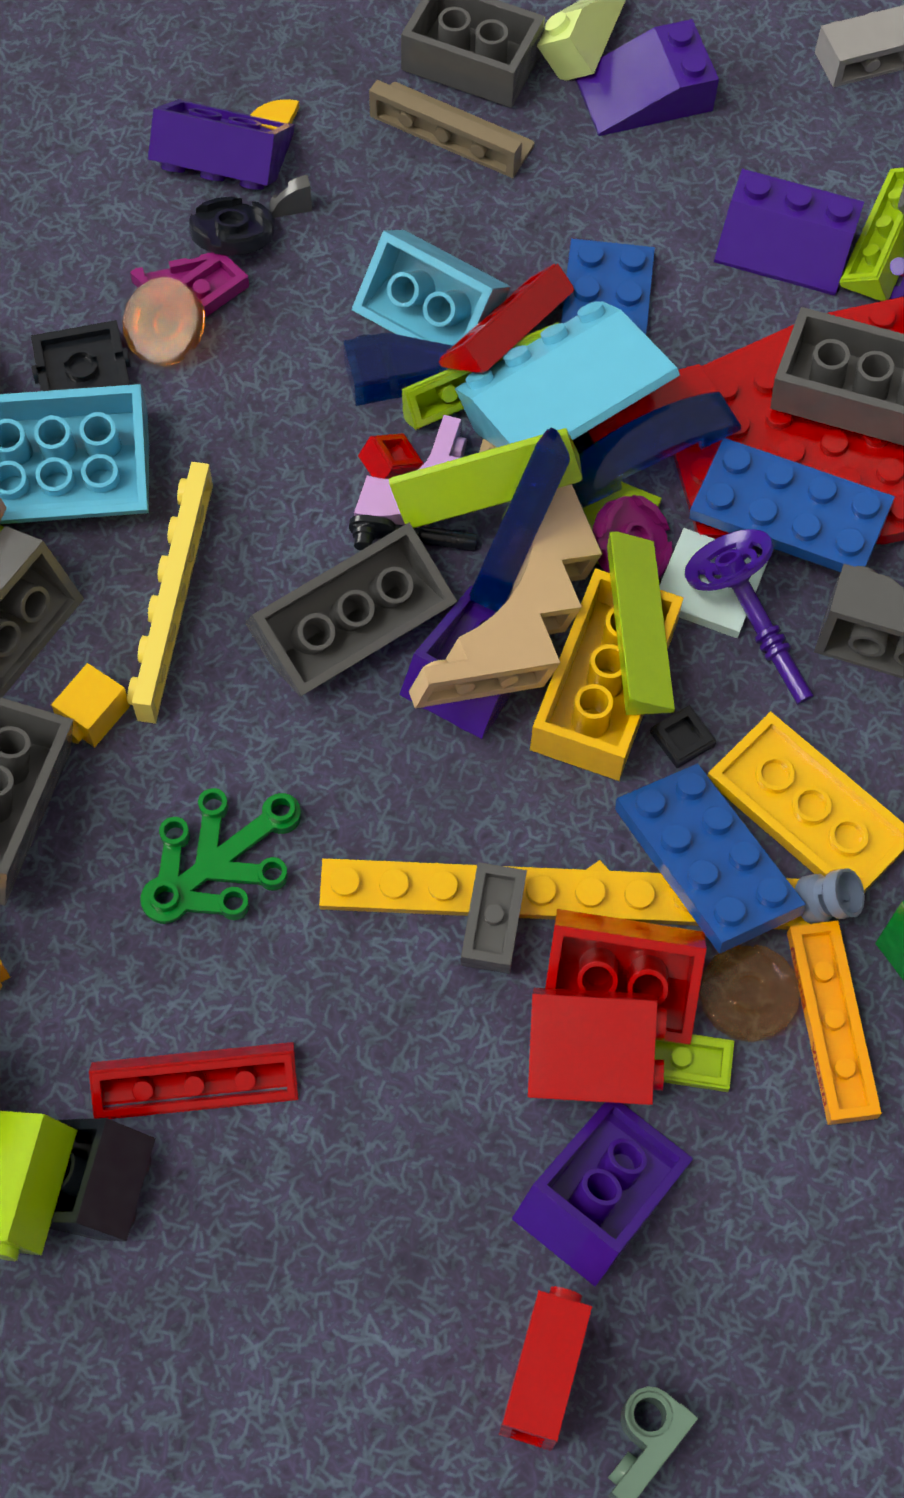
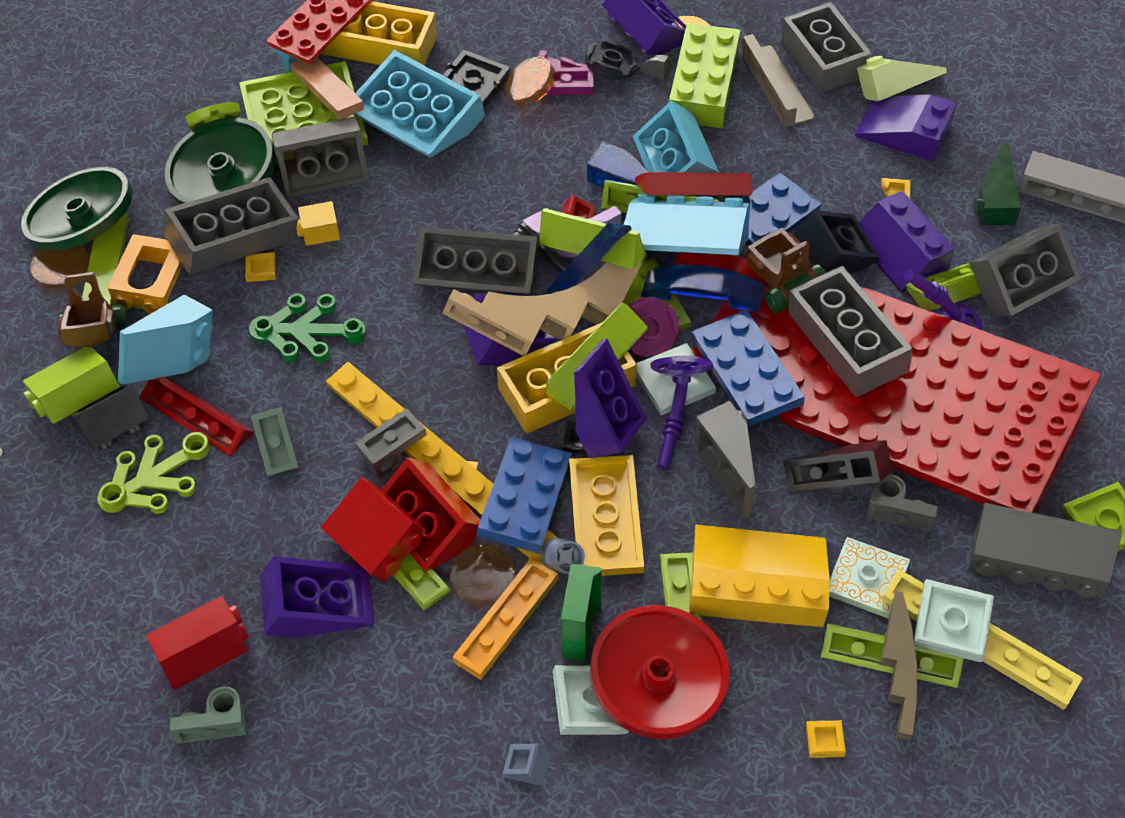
camera: 45 degrees right, 10 degrees down
(69, 821) = (260, 267): none -> yellow tile
(87, 1016) = (166, 342): none -> medium azure slope
(167, 608) = (406, 201): light yellow plate -> none
(228, 1212) = (151, 476): none -> lime plant
(346, 1035) = (274, 442): none -> sand green plate
(366, 168) = (706, 72): none -> lime brick
(712, 171) = (894, 186): none -> yellow tile
(713, 679) = (605, 403): none -> dark purple slope
(724, 287) = (837, 241): none -> black slope
(729, 355) = (783, 265): none -> reddish brown piece
(826, 103) = (999, 196): none -> dark green slope

